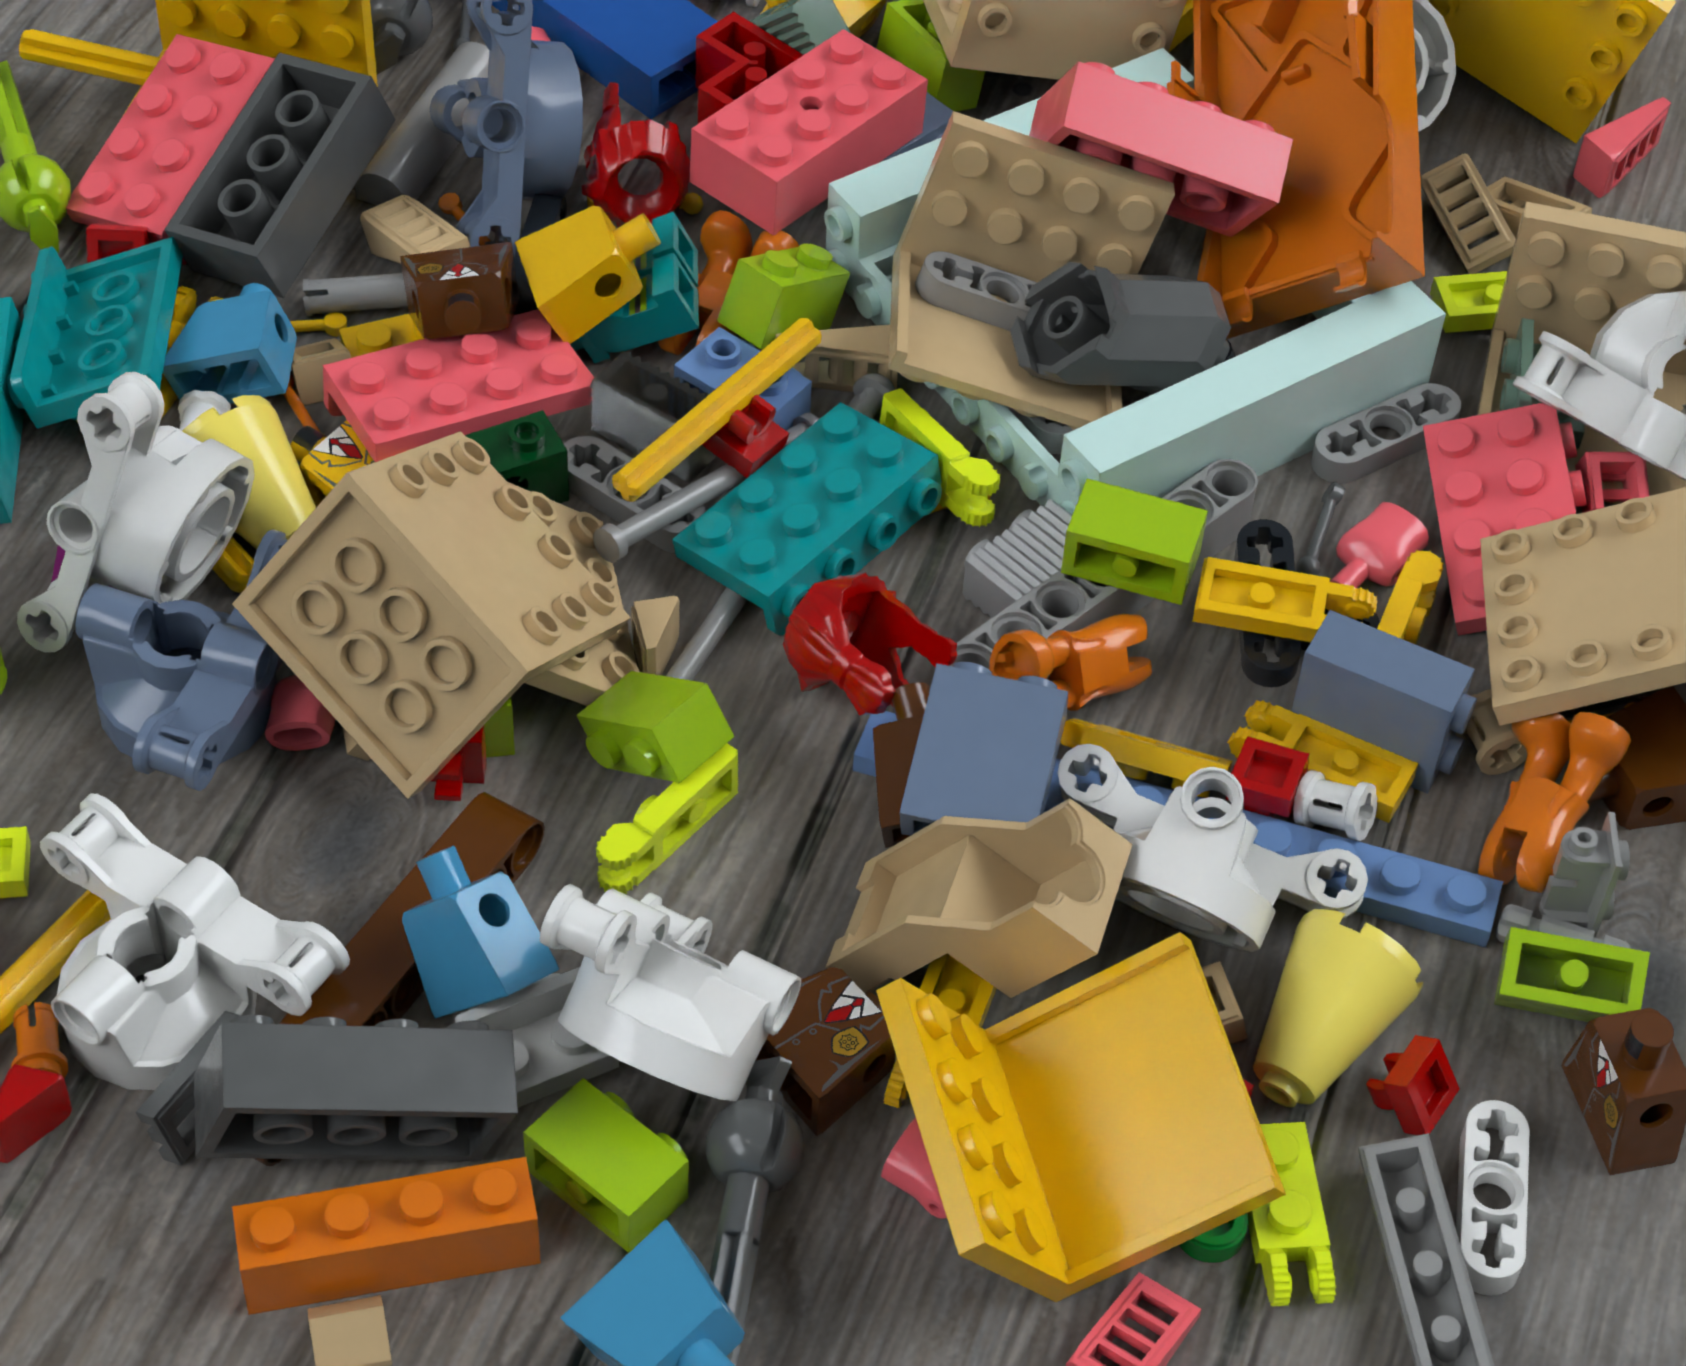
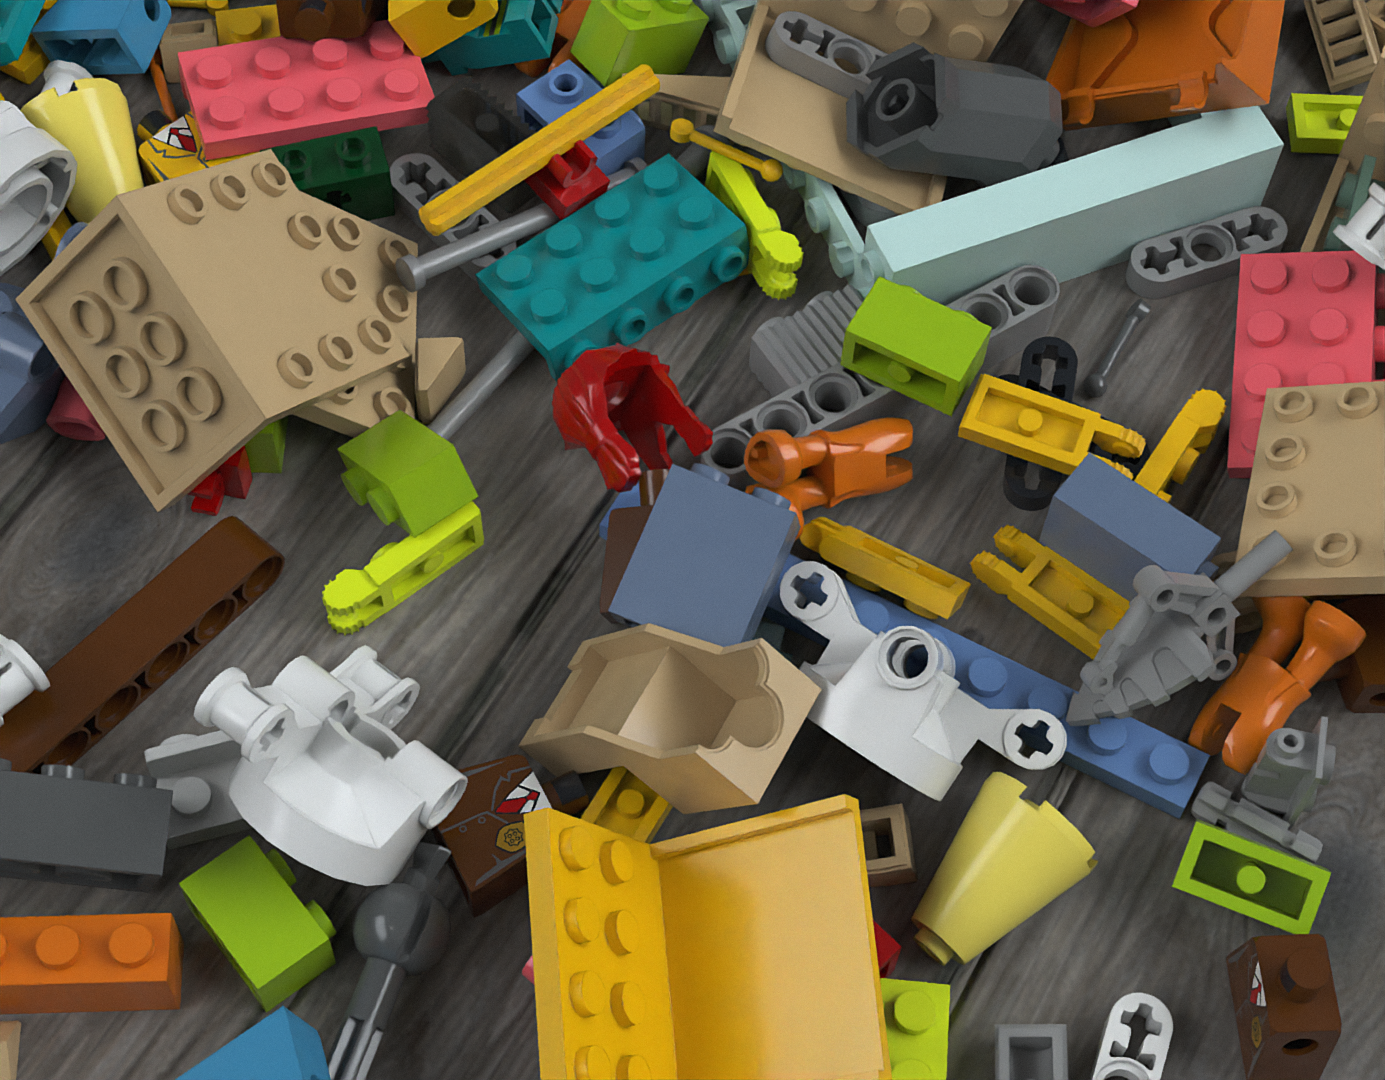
camera: 10 degrees right, 10 degrees up
(472, 937) = (165, 669): dark azure torso -> none
(853, 378) = (683, 132): none -> yellow hinge
(1269, 776) = (996, 611): red tile -> none
(1313, 806) = (1055, 648): white bush -> none
(1380, 546) = (1167, 377): coral piece -> none
(1417, 1085) = (1071, 965): red tile -> none
(1443, 781) = (1169, 637): none -> light grey bar

